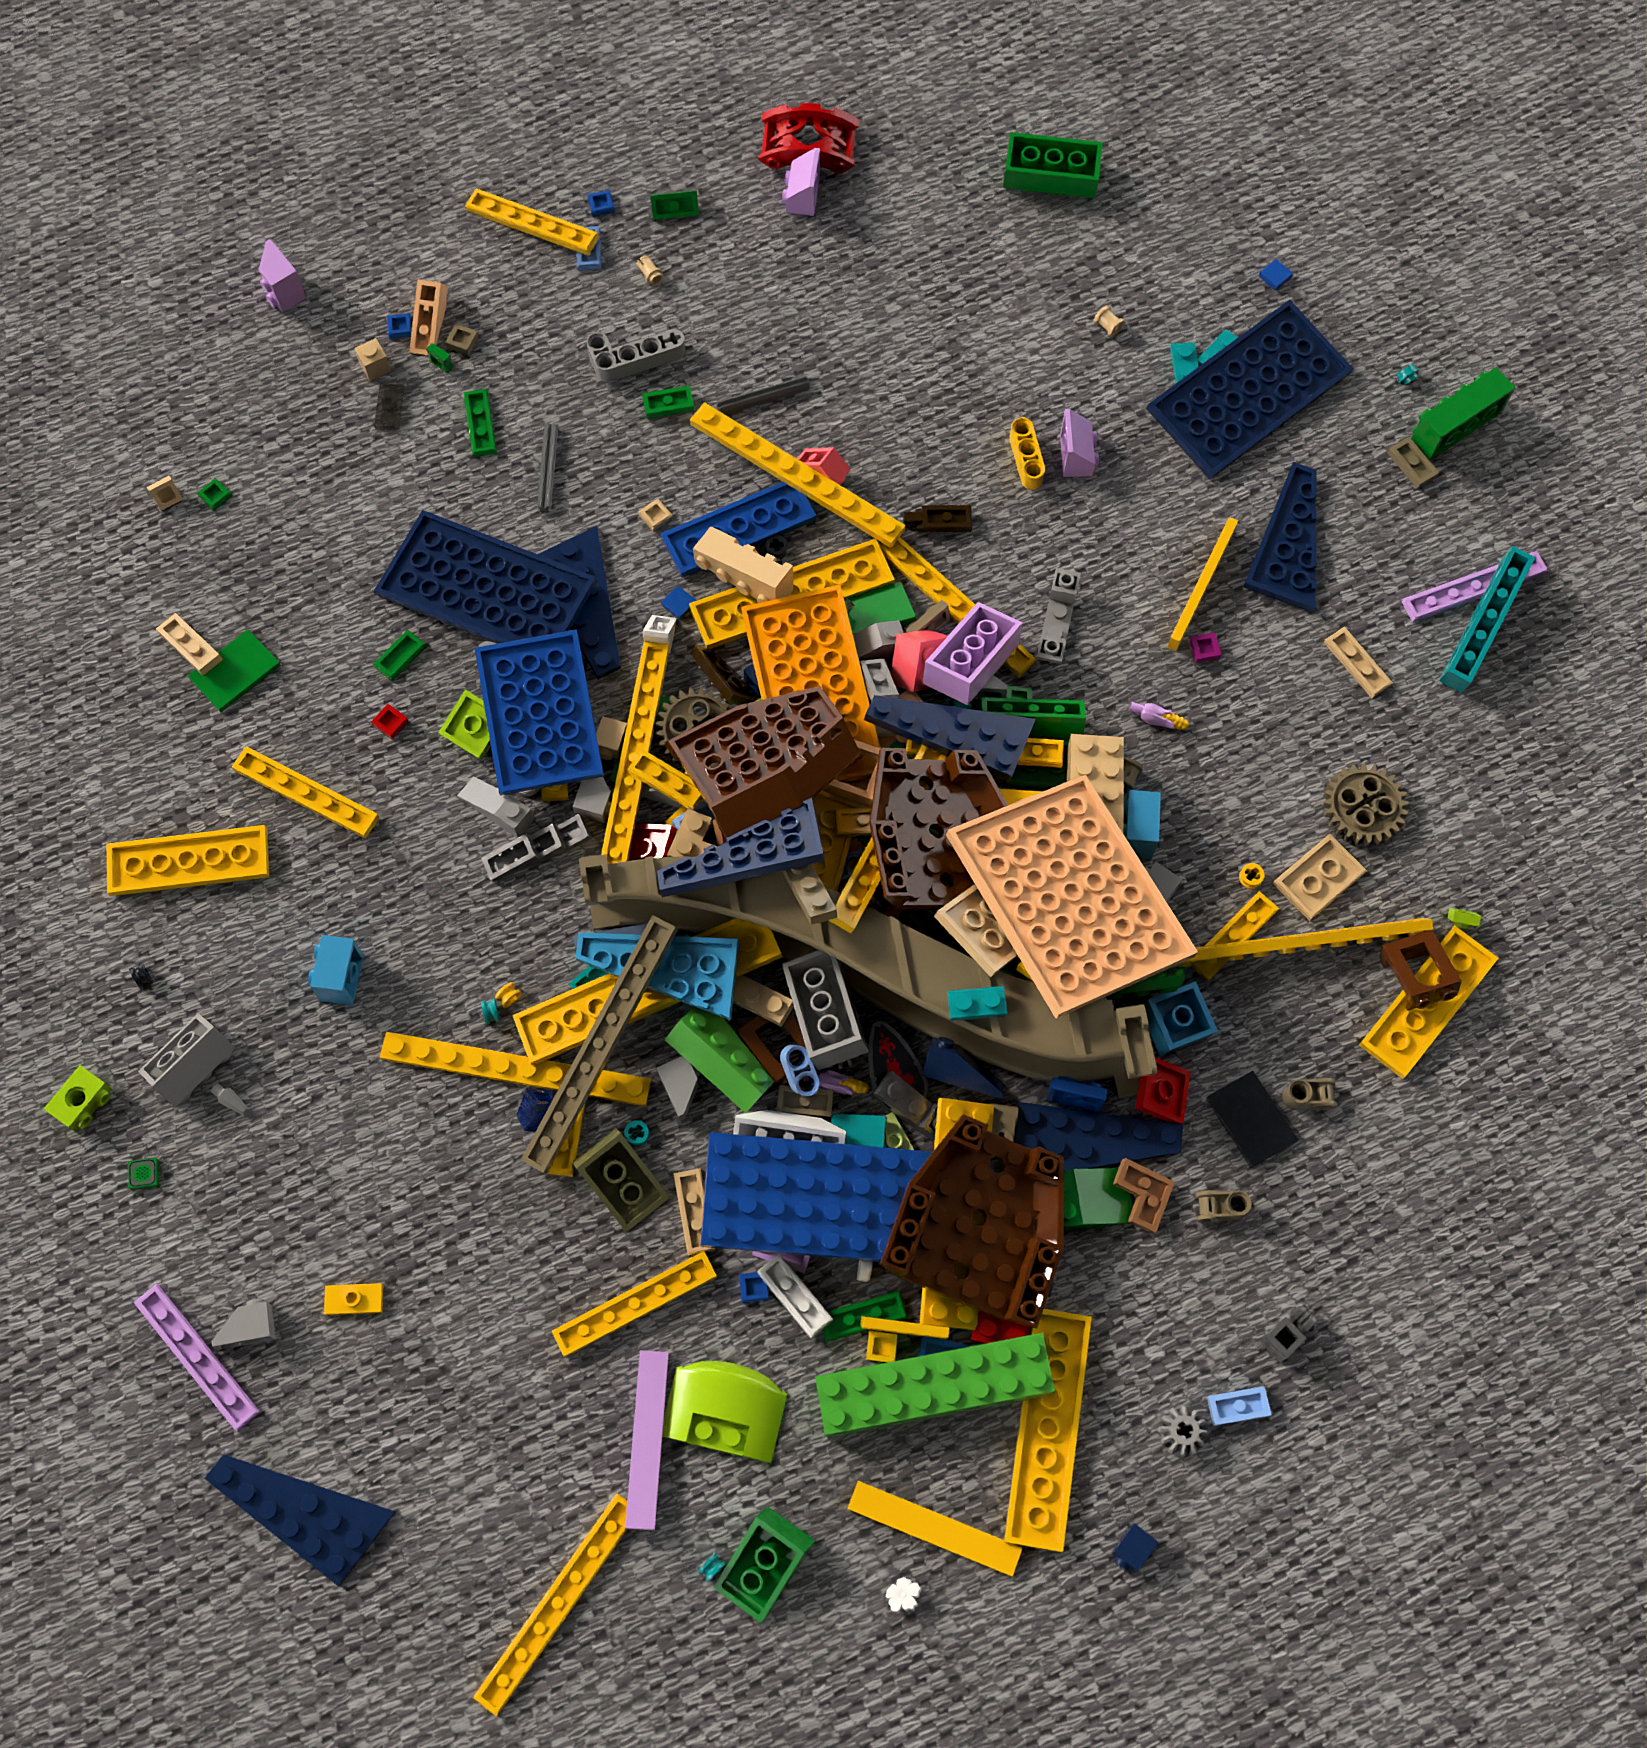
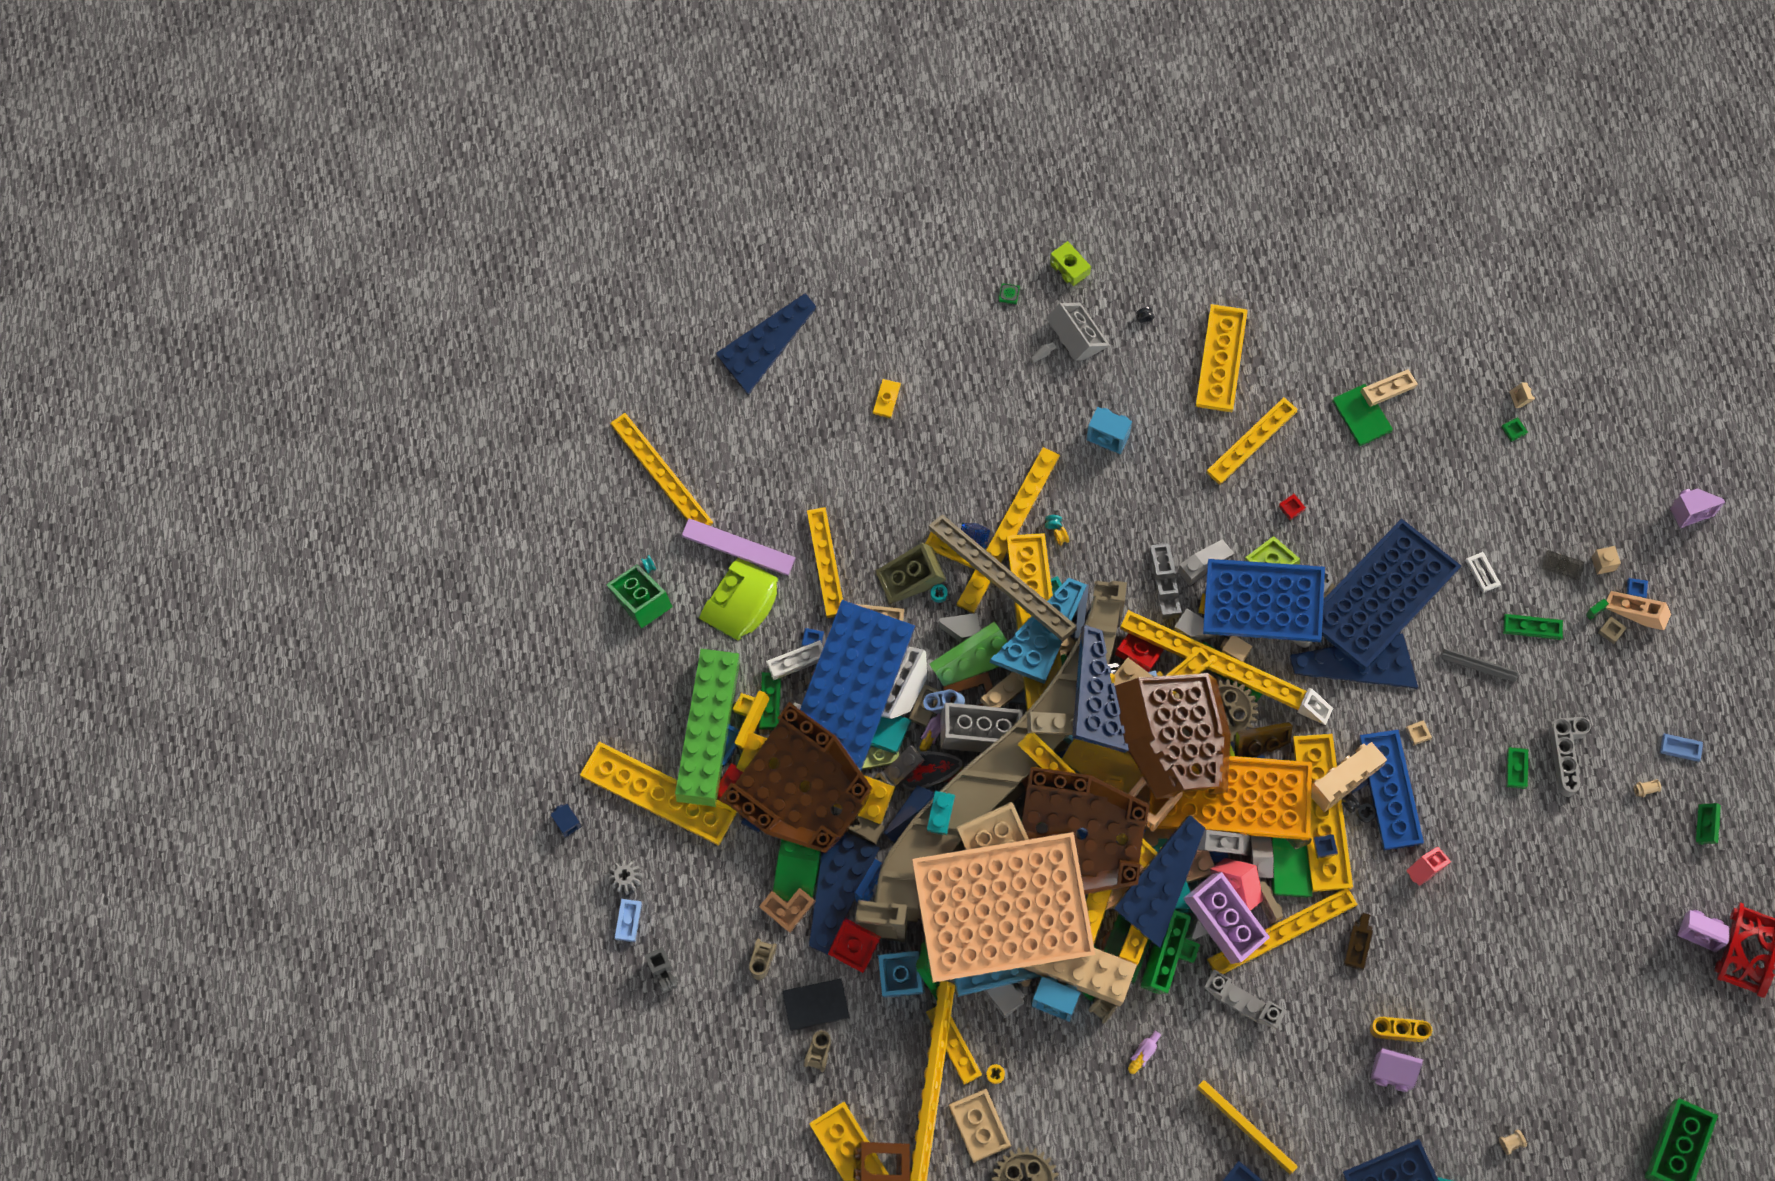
camera: 110 degrees right, 0 degrees up
(197, 1357) = (881, 303): lavender tile -> none
(247, 1326) = (890, 334): light grey slope -> none
(399, 655) = (1345, 526): green tile -> none
(443, 484) = (1477, 577): none -> white tile
(532, 222) = (1715, 709): yellow tile -> none
(601, 203) = (1724, 768): blue tile -> none
(678, 602) = (1337, 728): blue tile -> none
(763, 395) = (1507, 843): dark grey axle -> none
(798, 475) = (1423, 843): yellow plate -> none
(839, 573) = (1325, 846): none -> dark blue plate
(903, 1595) = (591, 671): white plant -> none
(935, 1528) = (623, 703): yellow tile -> none
(1205, 648) = (1191, 1109): magenta plate -> none

